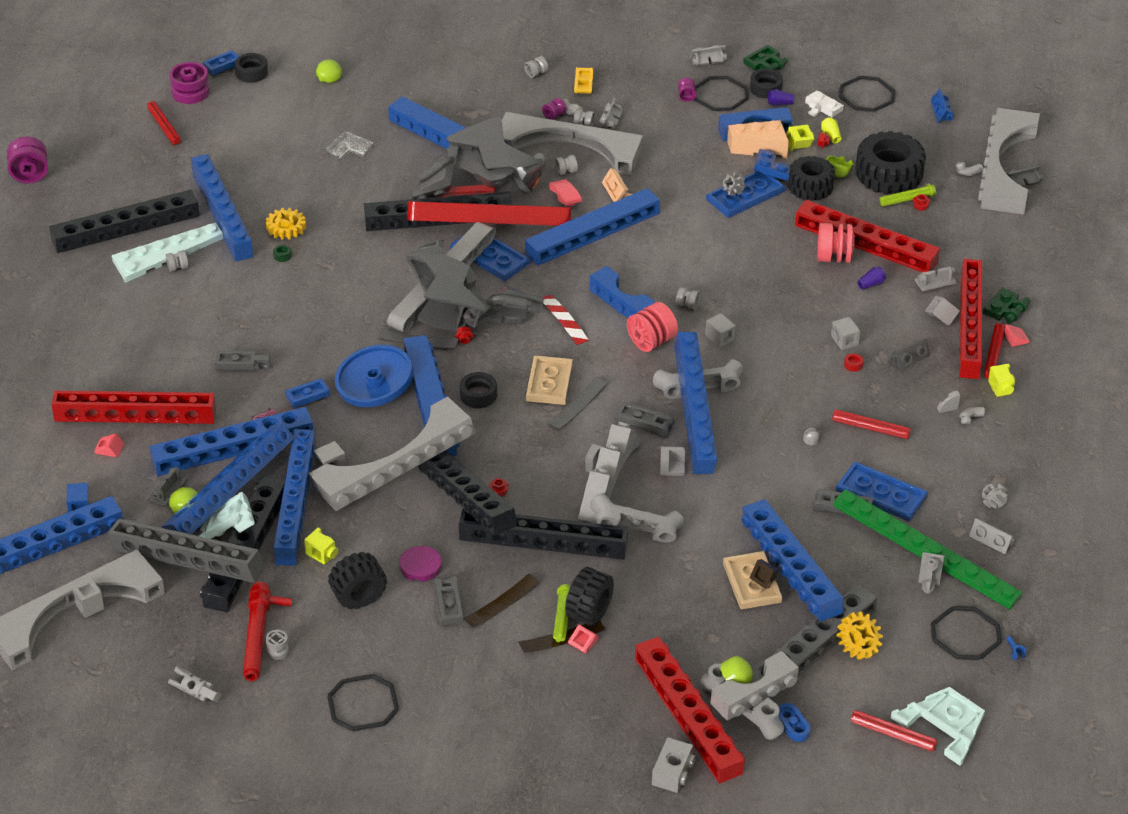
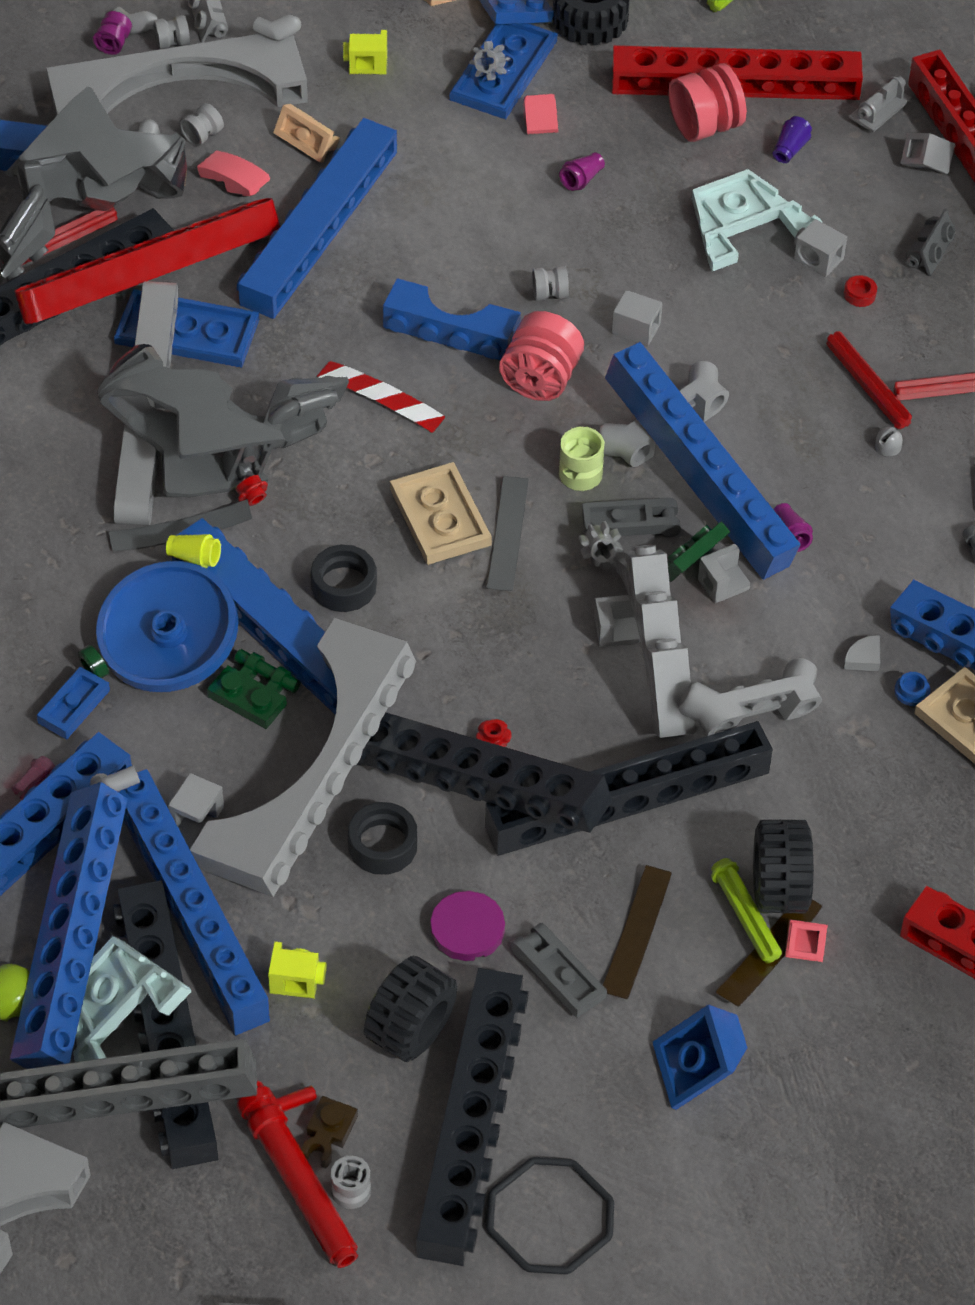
camera: 30 degrees left, 10 degrees up
(287, 619) = (328, 1126): none -> dark brown plate
(296, 427) = (118, 780): none -> light grey arm
(329, 379) = (93, 661): none -> dark green tile
(355, 642) = (438, 1238): none -> black brick
(393, 424) = (249, 697): none -> dark green plate
(408, 520) = (382, 814): none -> black tyre
(410, 345) = (195, 549): none -> neon yellow cone
(488, 662) = (699, 1053): none -> blue slope
(619, 417) = (598, 534): none -> light grey gear
(634, 132) = (278, 29): none -> light grey arm
(638, 381) = (581, 458): none -> yellowish green wheel
(651, 444) = (695, 549): none -> dark green plate
(677, 161) = (366, 53): none -> neon yellow brick
(717, 526) = (864, 655): none -> light grey tile
(725, 455) = (796, 524): none -> magenta cone
(729, 549) = (912, 688): none -> blue plate
(746, 220) = (540, 114): none -> coral slope
(746, 253) = (580, 171): none -> magenta cone
(815, 298) = (739, 205): none -> light aqua wing
(823, 404) = (869, 380): none -> red axle

